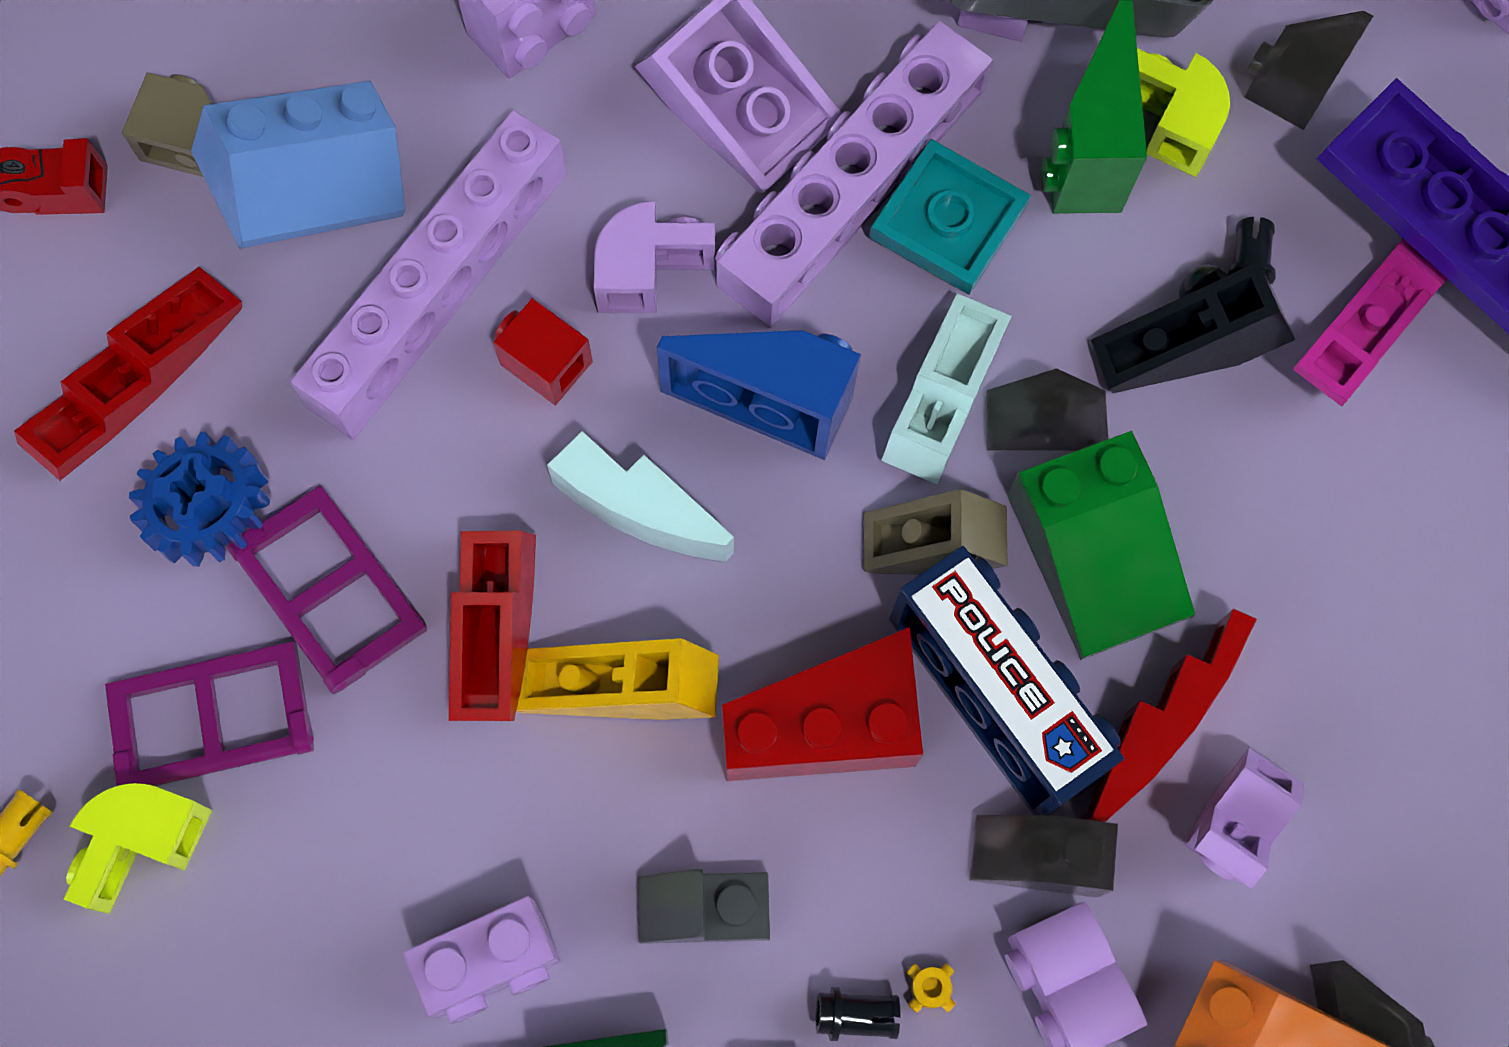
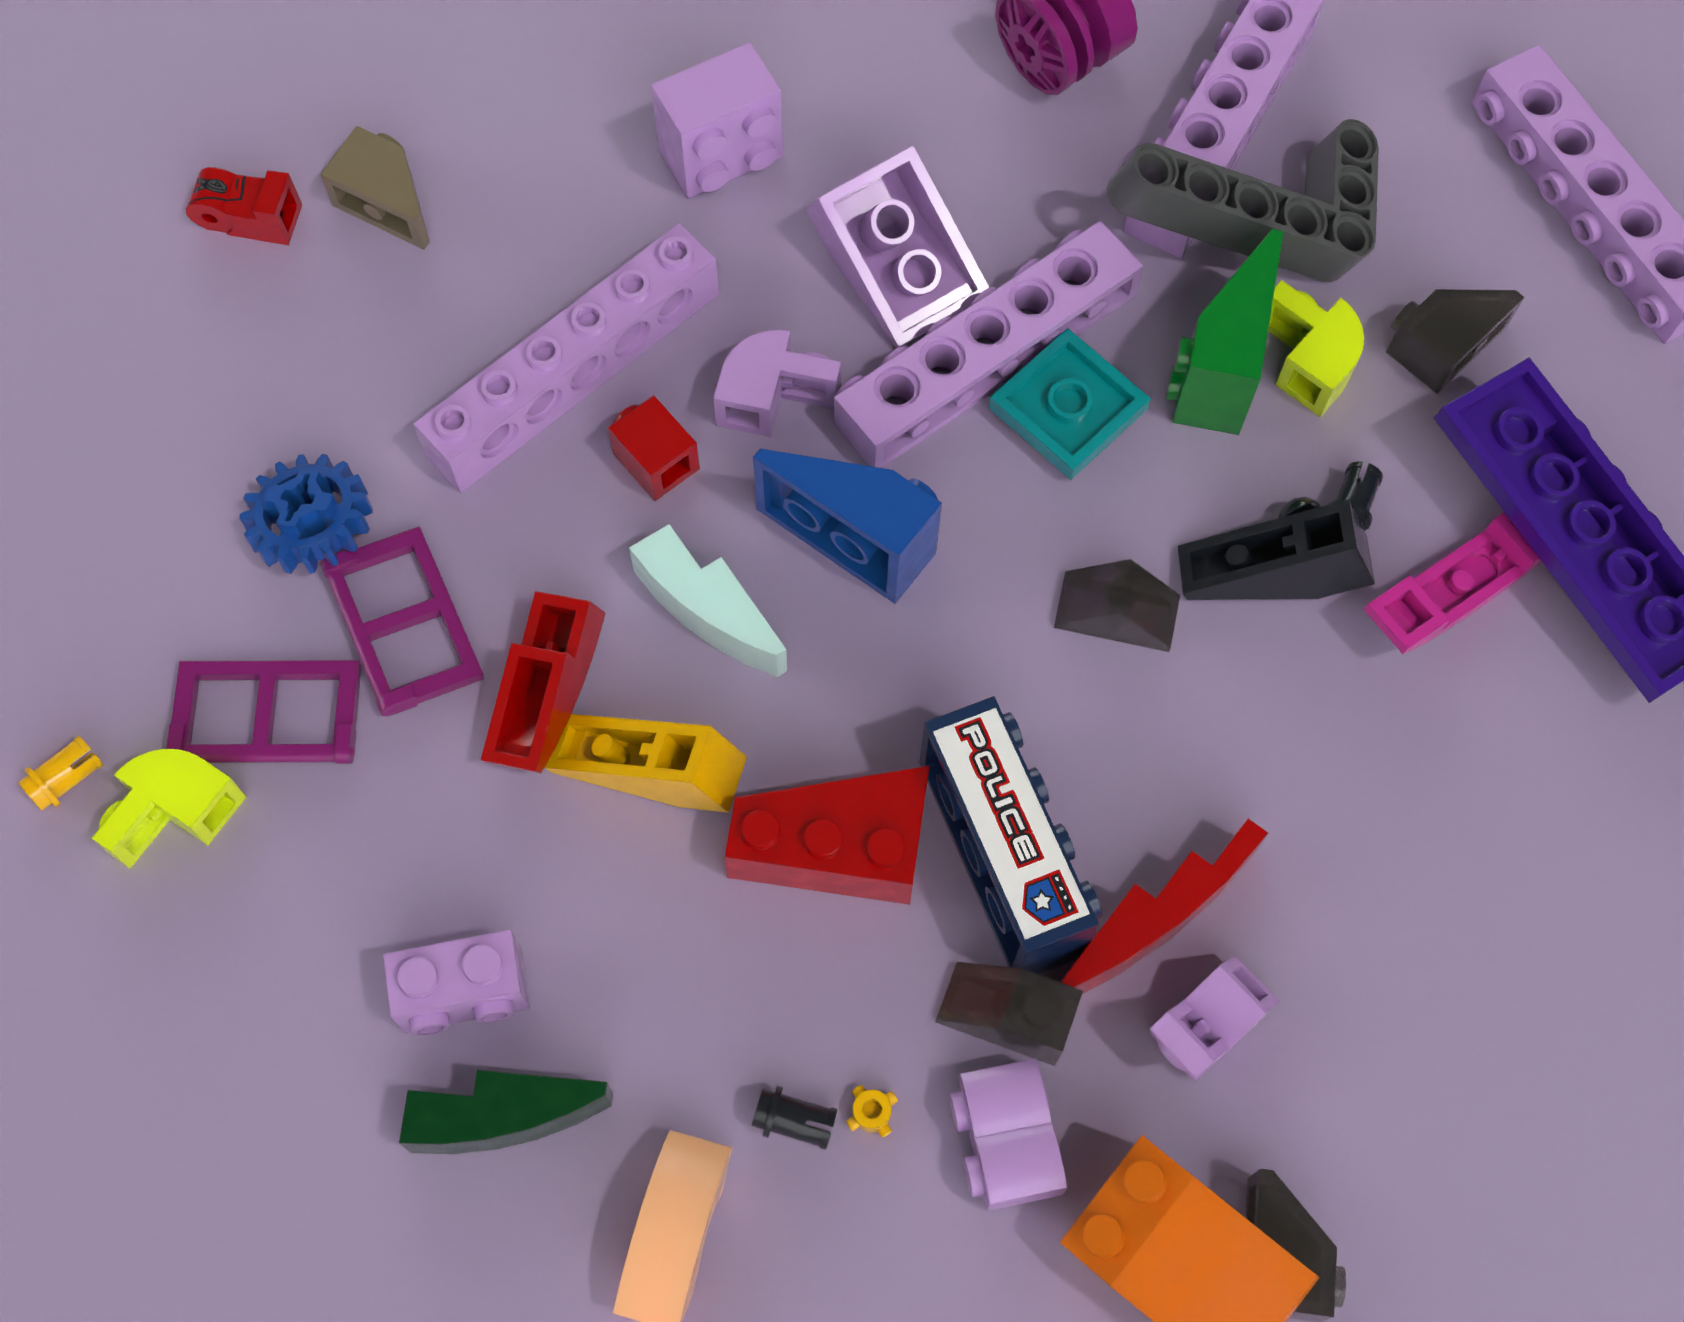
camera: 15 degrees right, 5 degrees down
(124, 379) = (266, 395): red slope -> none
(300, 162) = (474, 231): medium blue slope -> none
(703, 907) = (674, 986): dark grey slope -> none
(926, 530) = (966, 678): dark tan slope -> none
(946, 388) = (1025, 560): light aqua slope -> none
(1103, 543) = (1140, 735): green slope -> none

